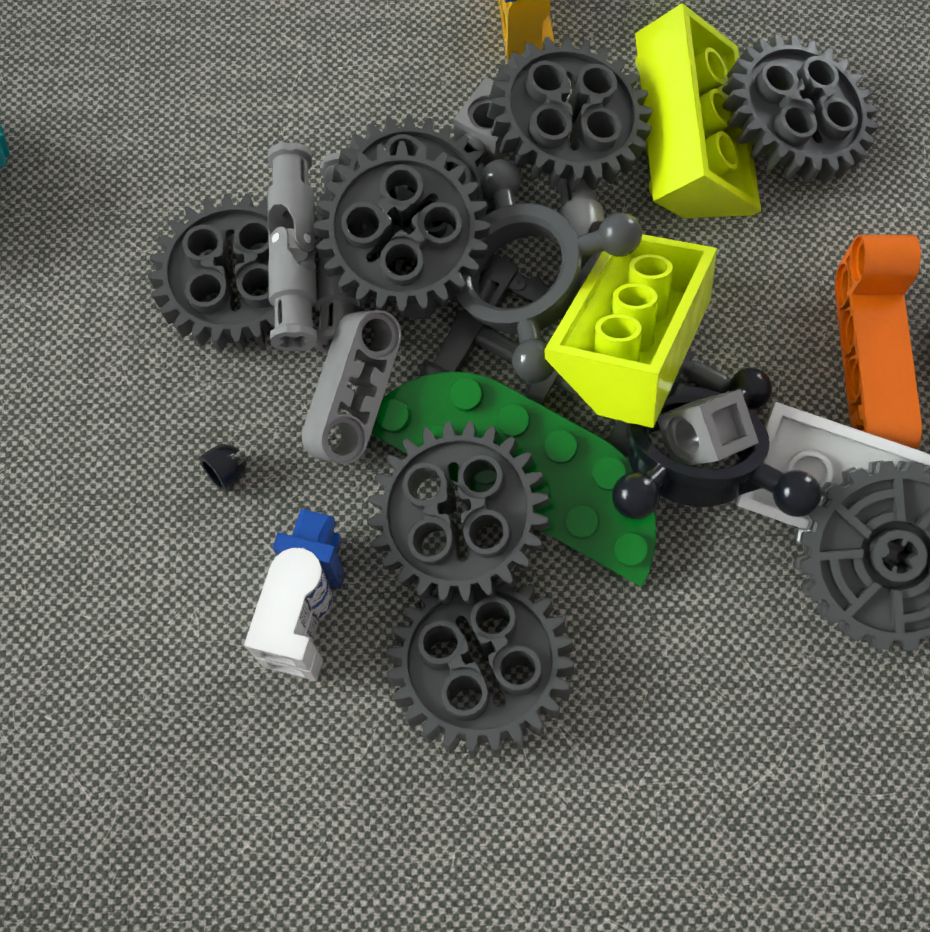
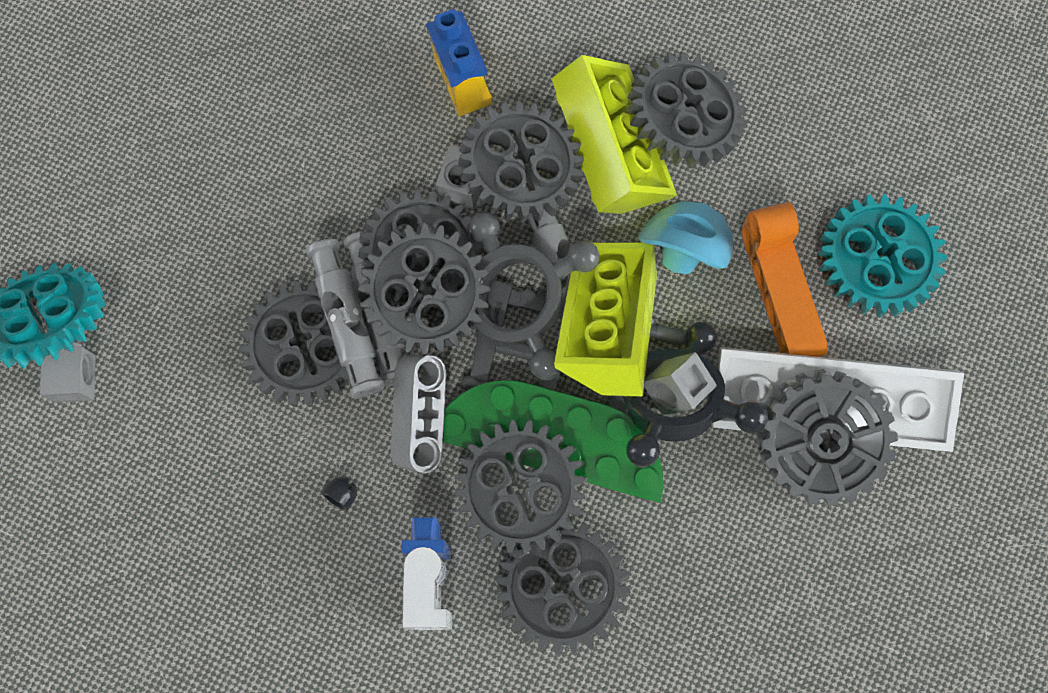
camera: 15 degrees left, 5 degrees up
(765, 258) = (690, 235): none -> medium azure hat

